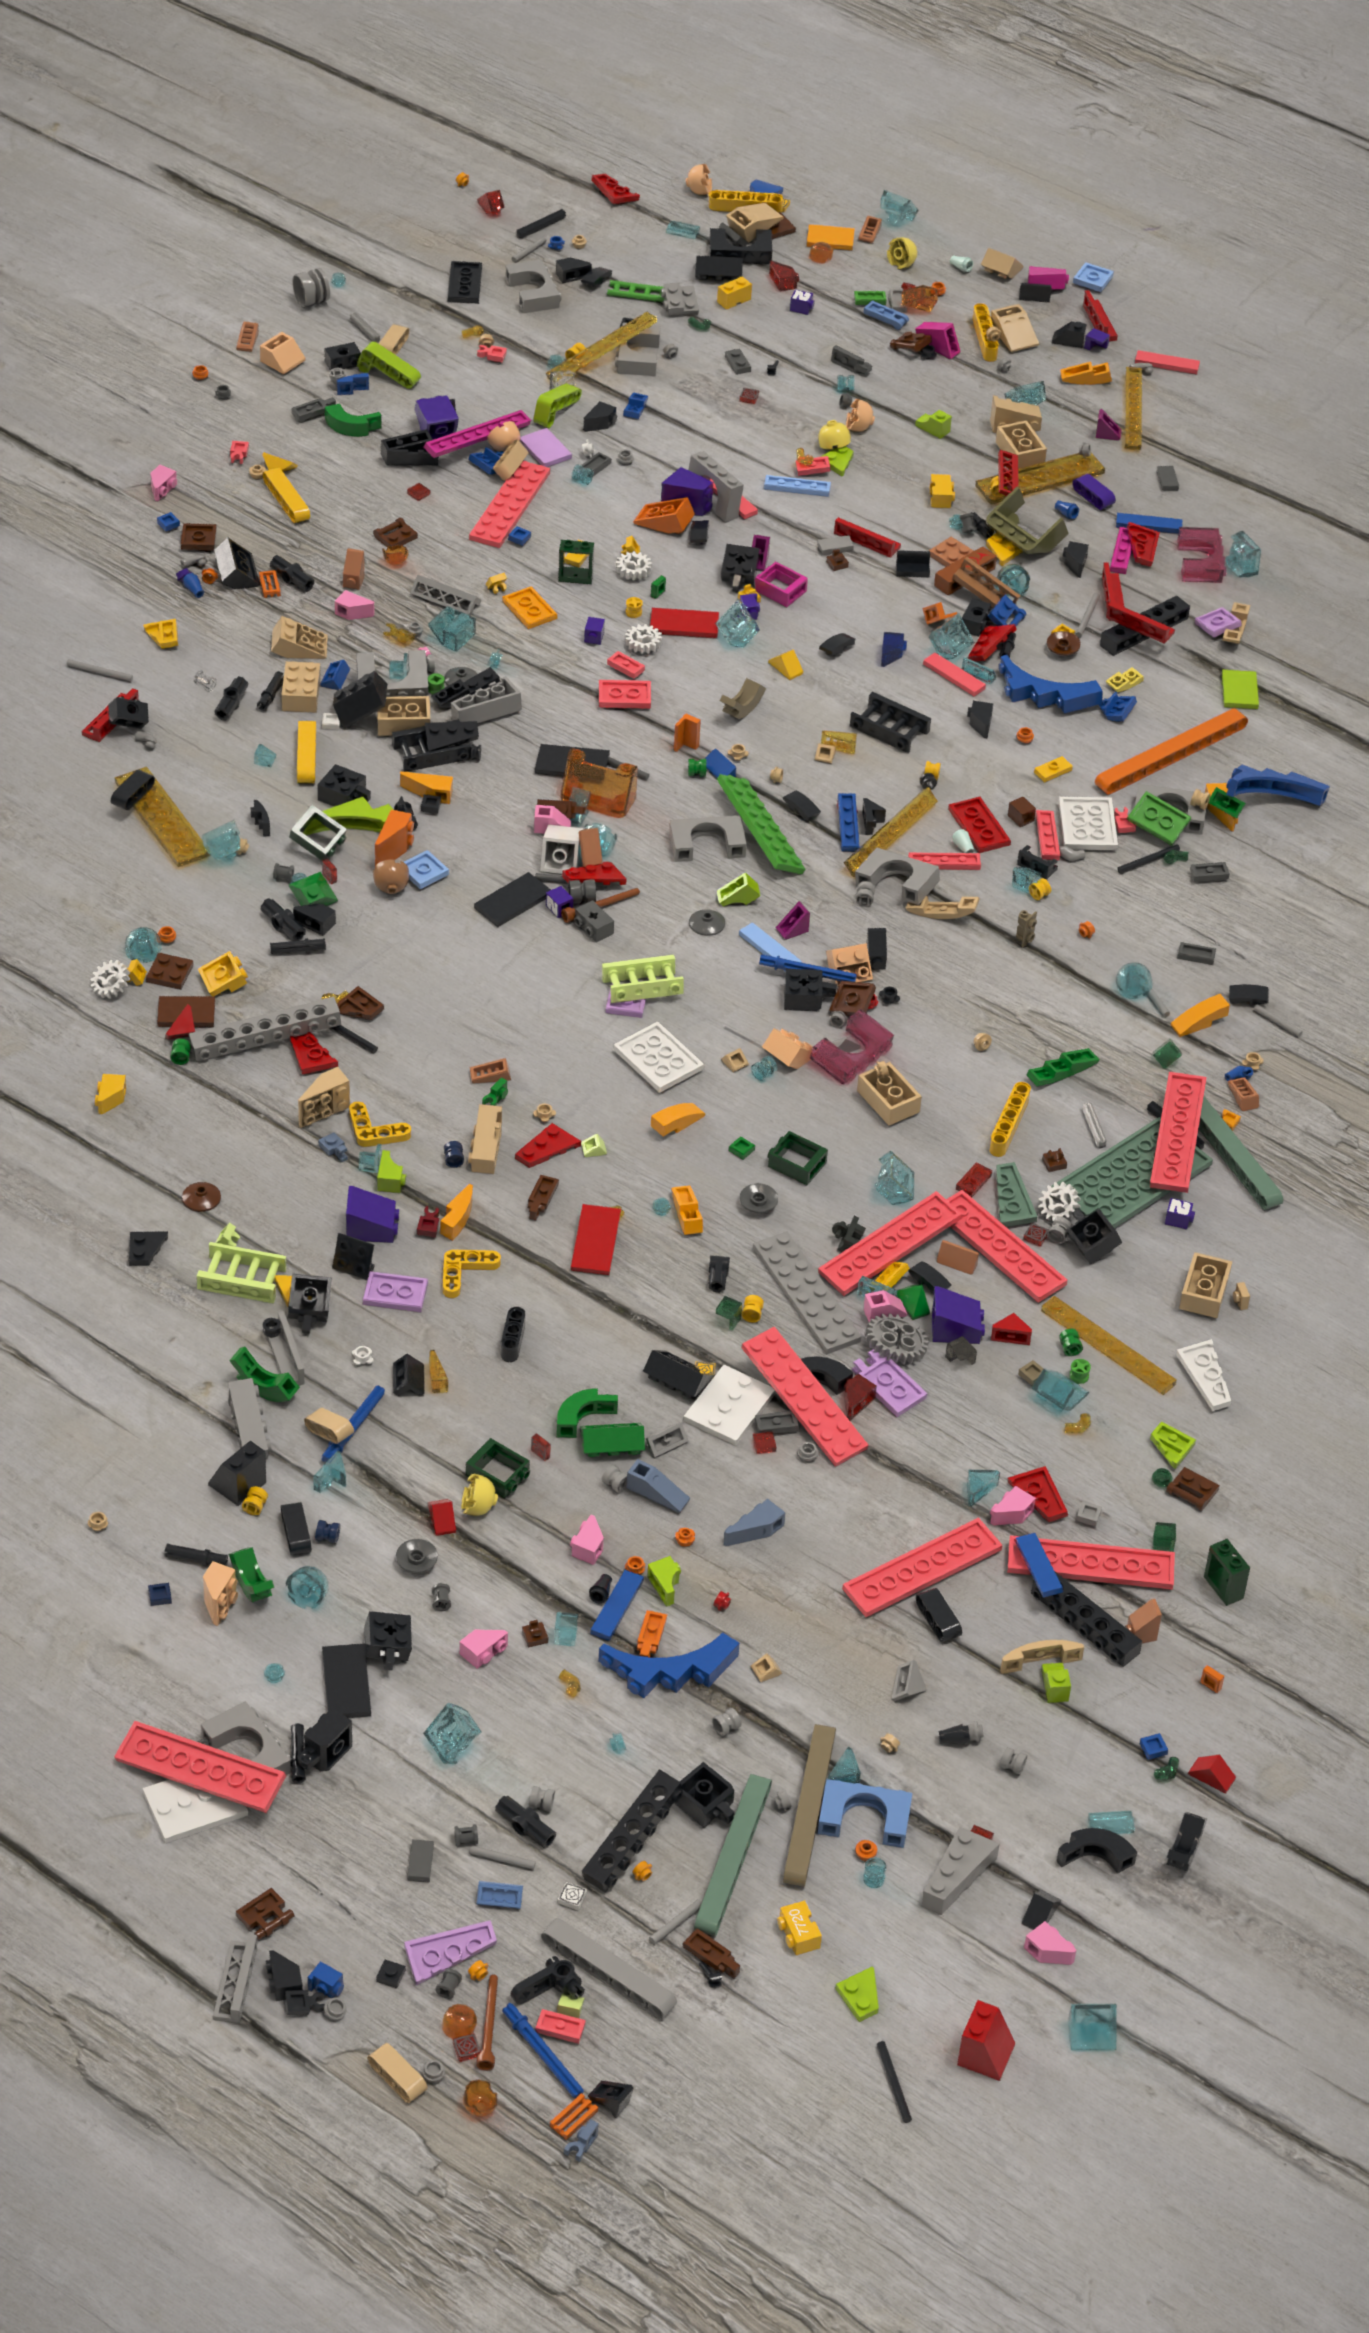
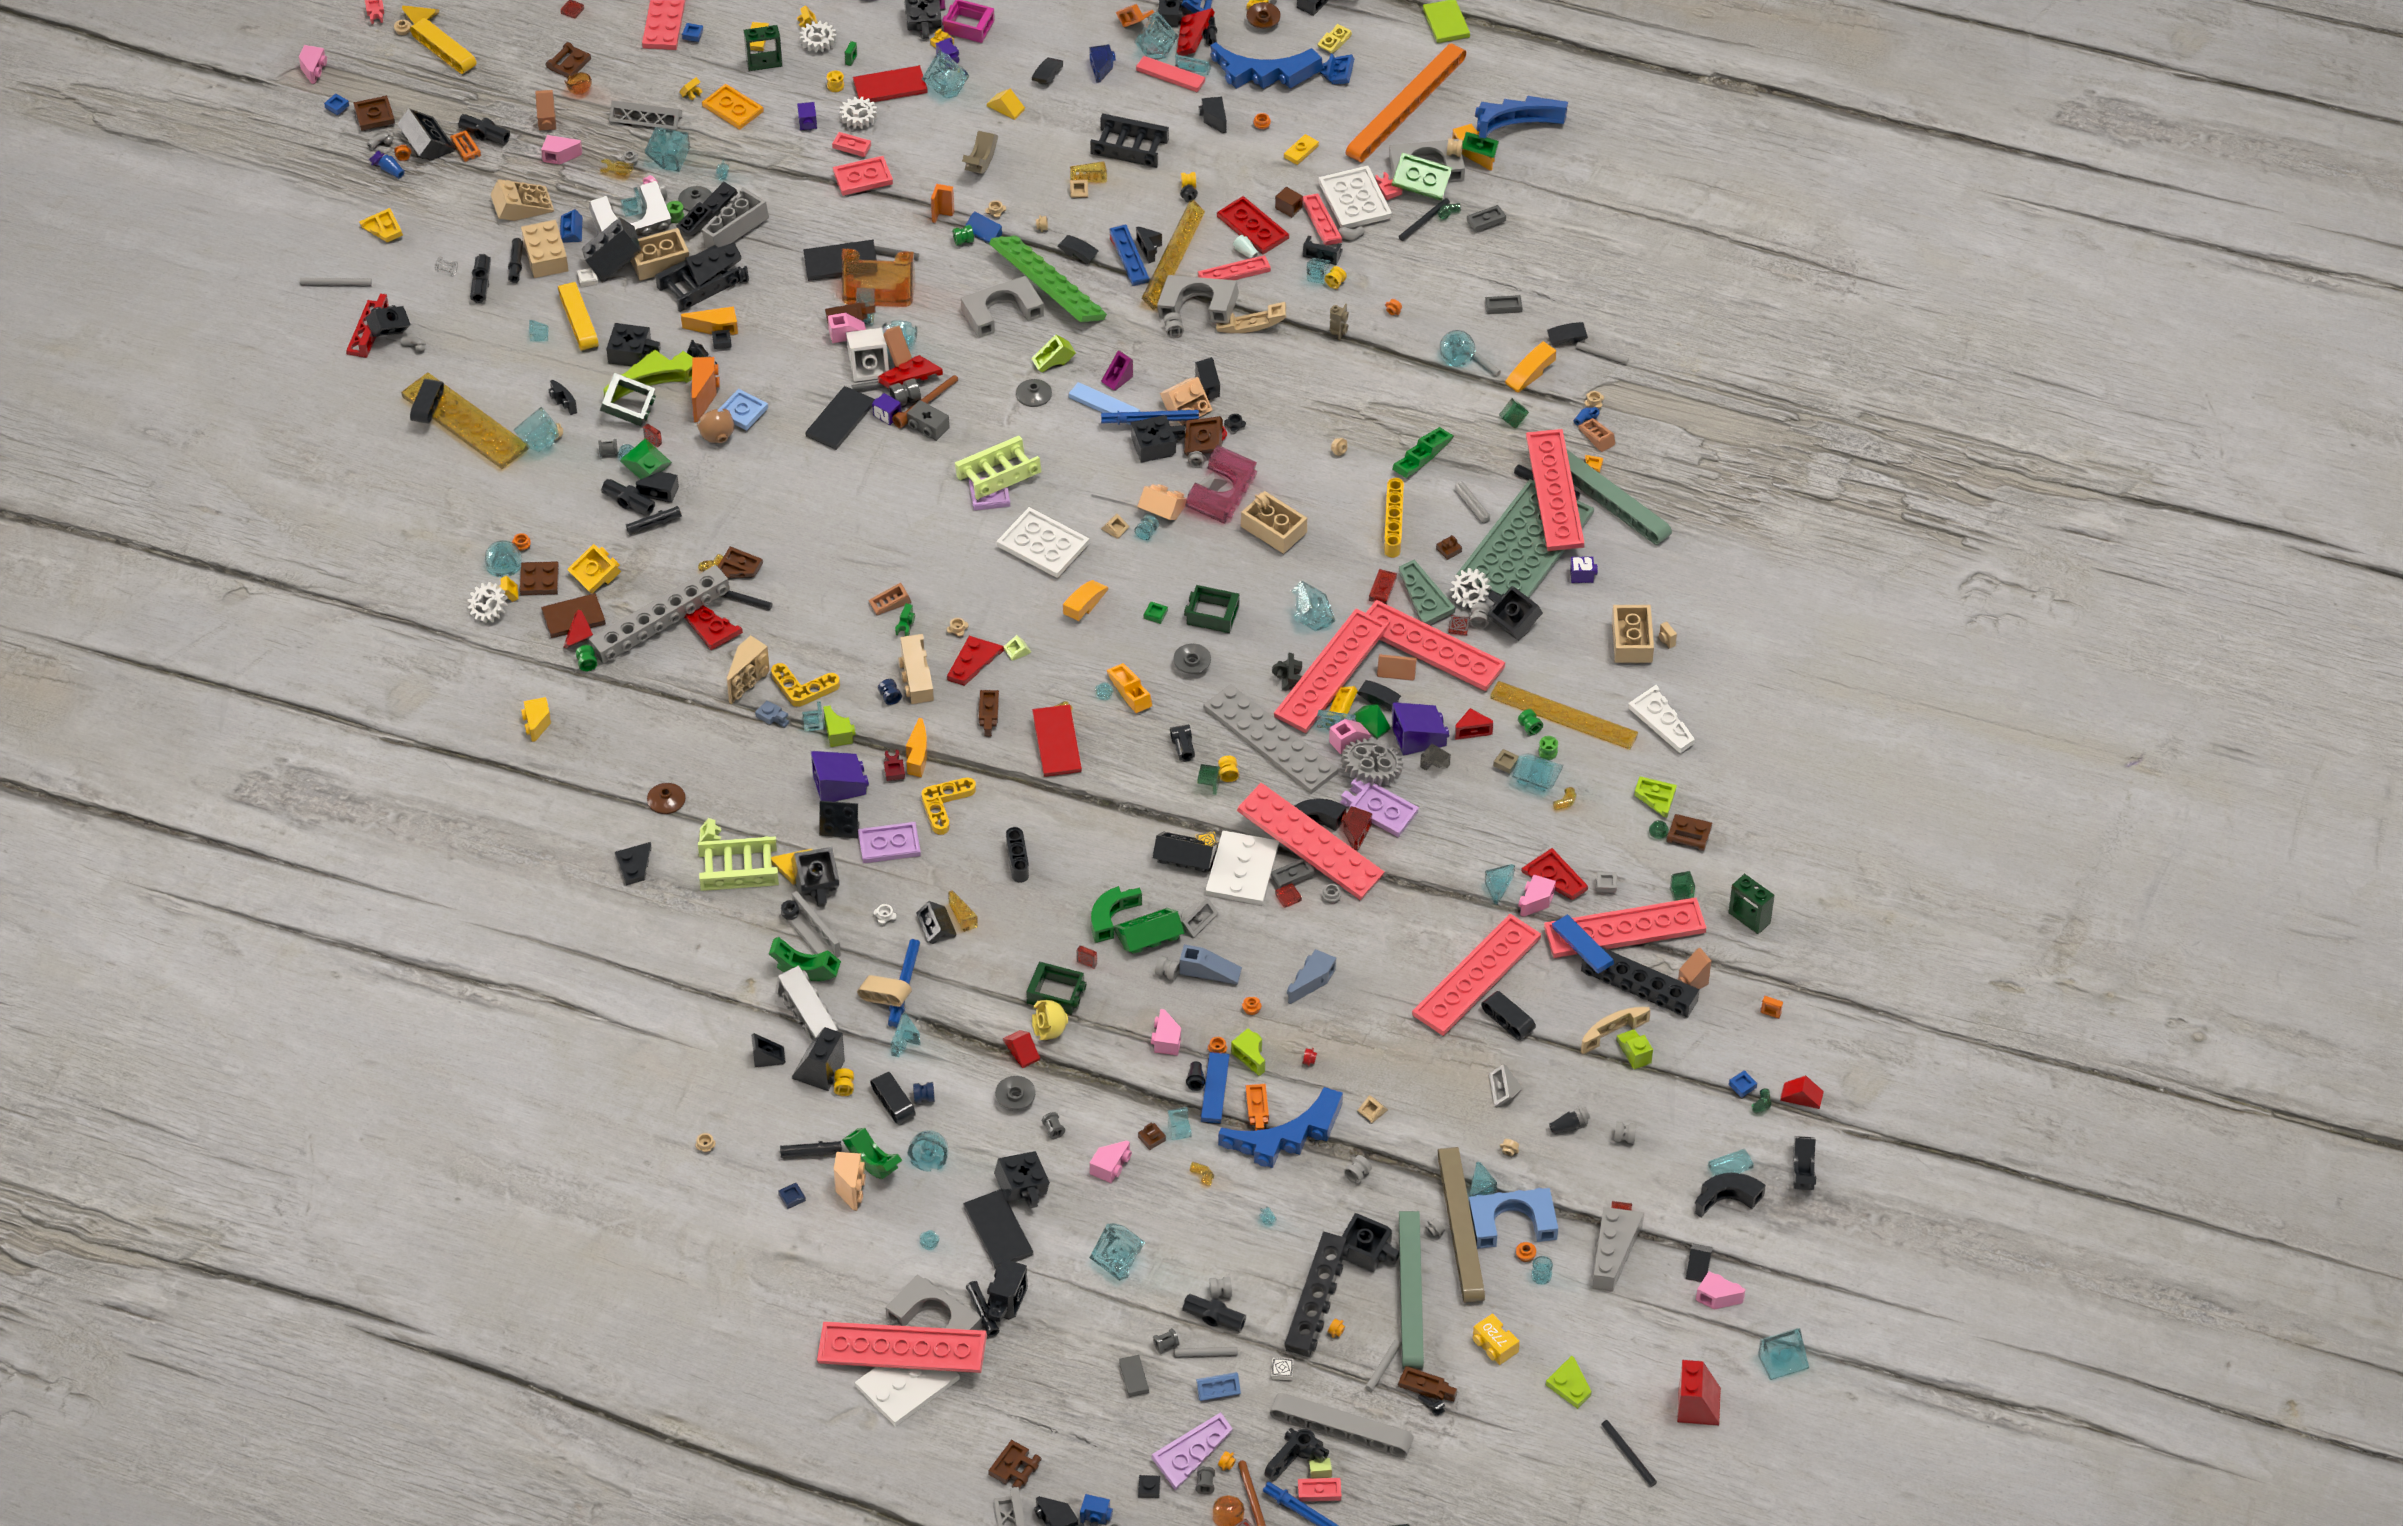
camera: 15 degrees left, 5 degrees up
(192, 1452) = (767, 1052): none -> black slope

